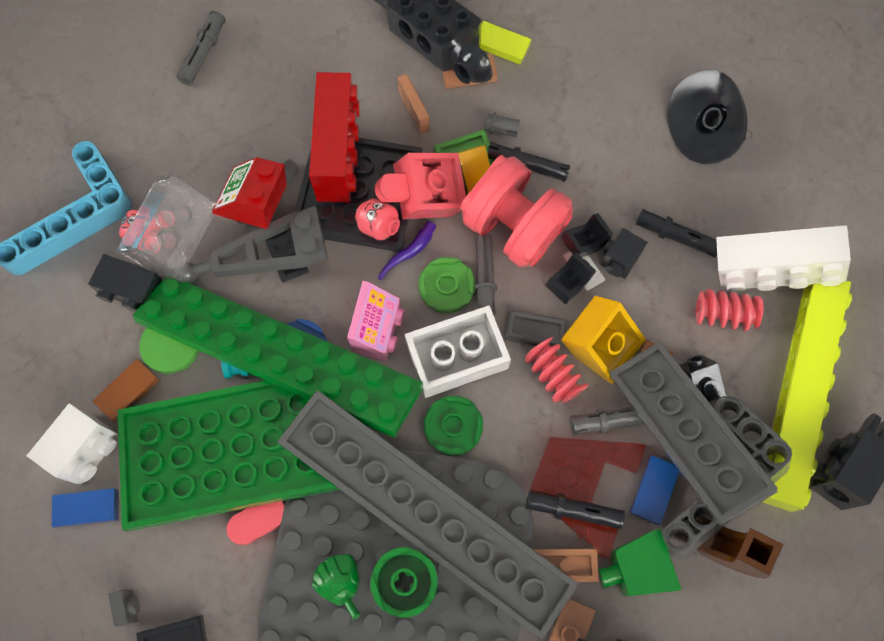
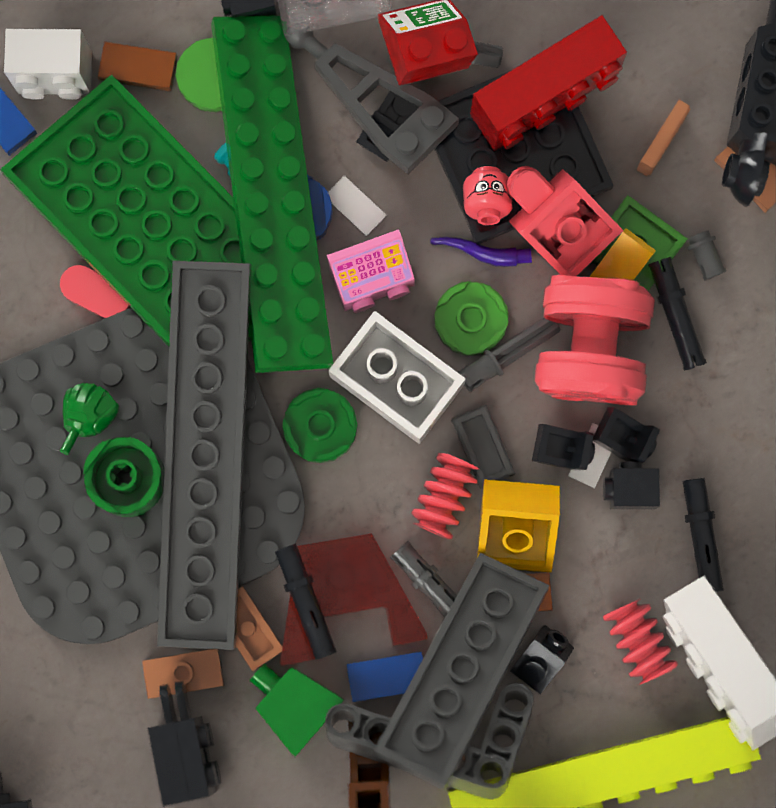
camera: 60 degrees right, 10 degrees up
(323, 310) = (356, 205): none -> white sticker

